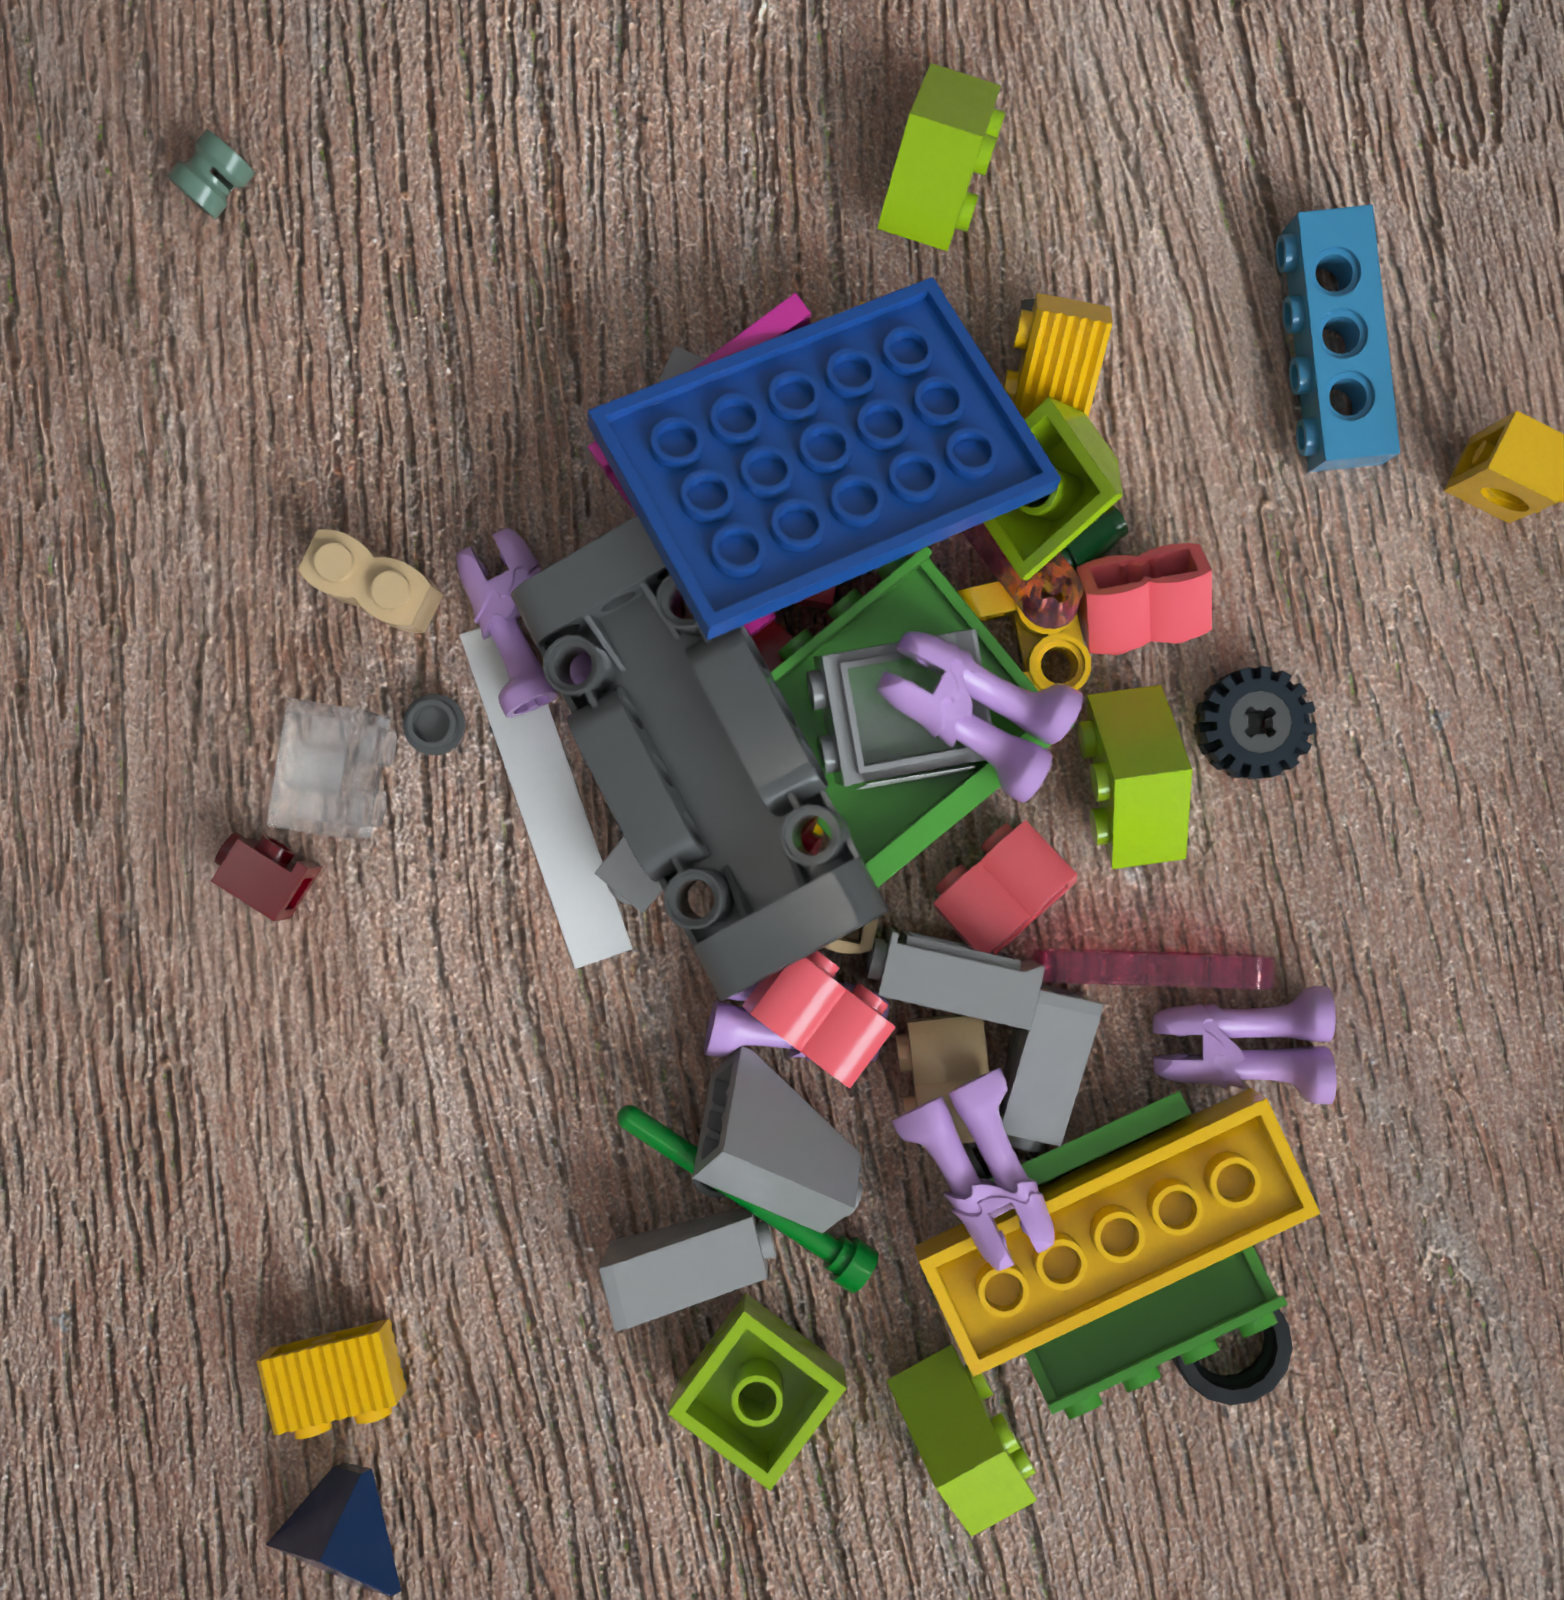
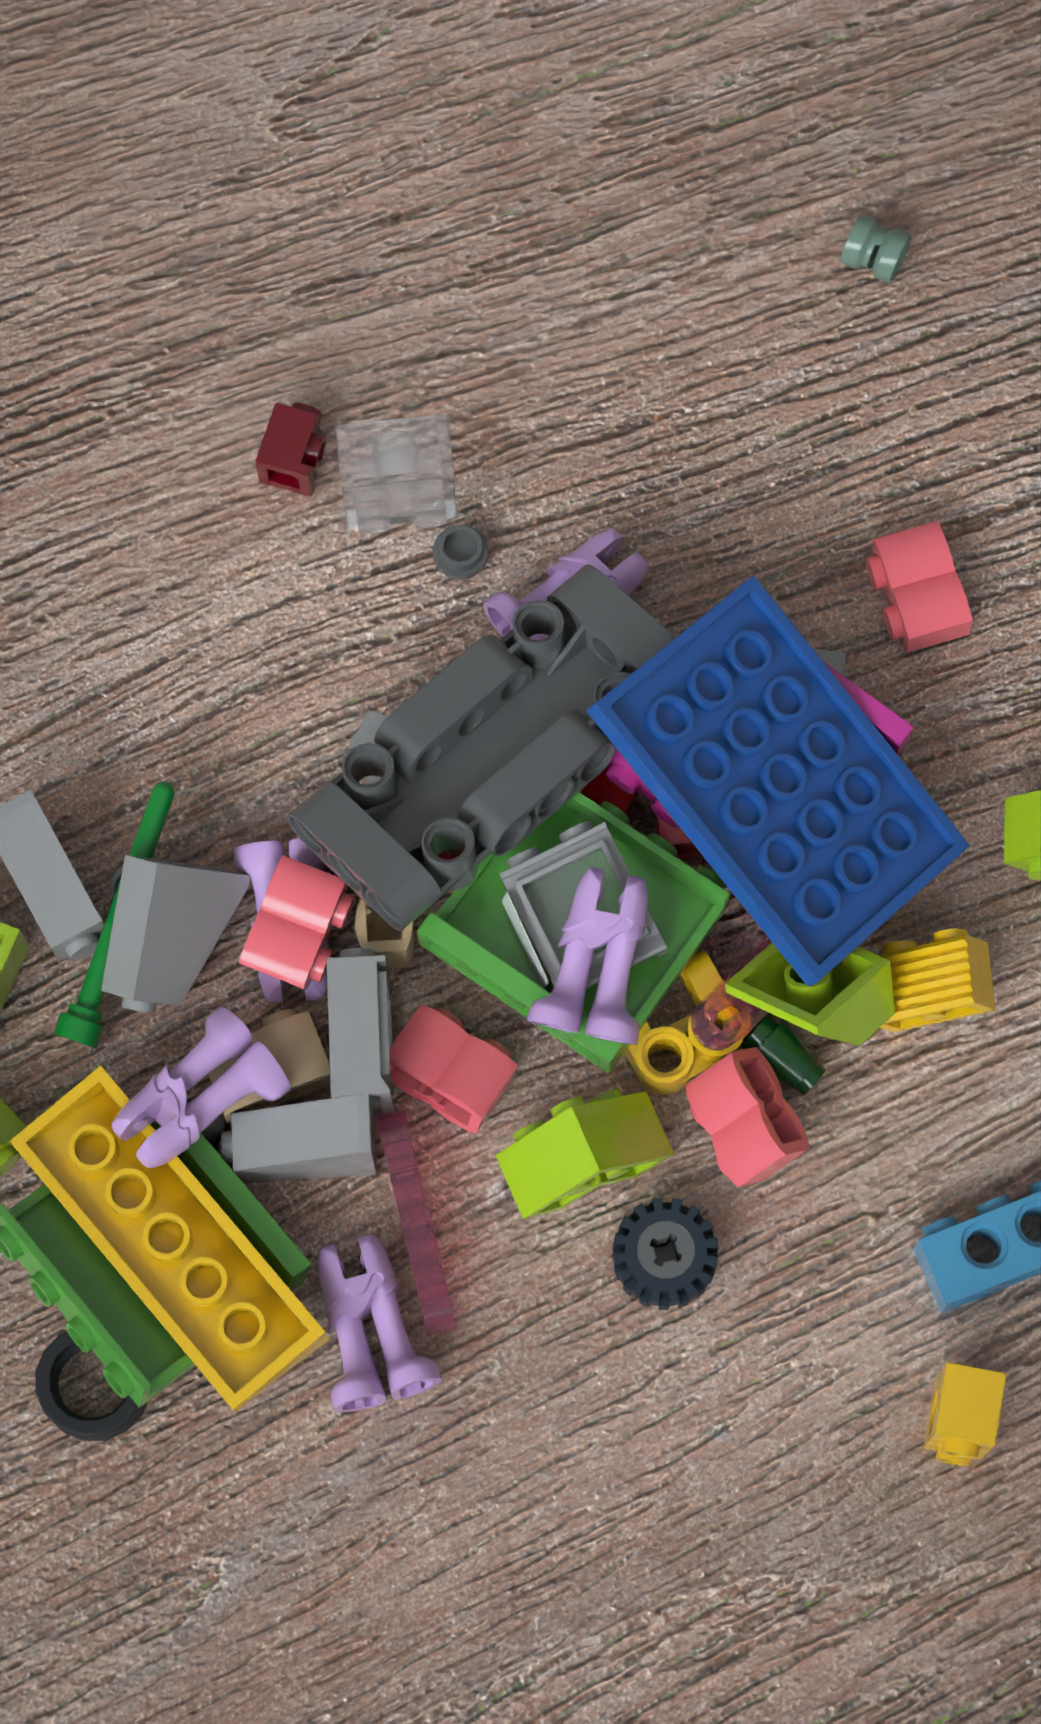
camera: 75 degrees right, 15 degrees down
(376, 583) = (567, 466): tan brick -> none
(551, 814) = (331, 722): white sticker -> none
(615, 246) = (920, 586): none -> coral brick

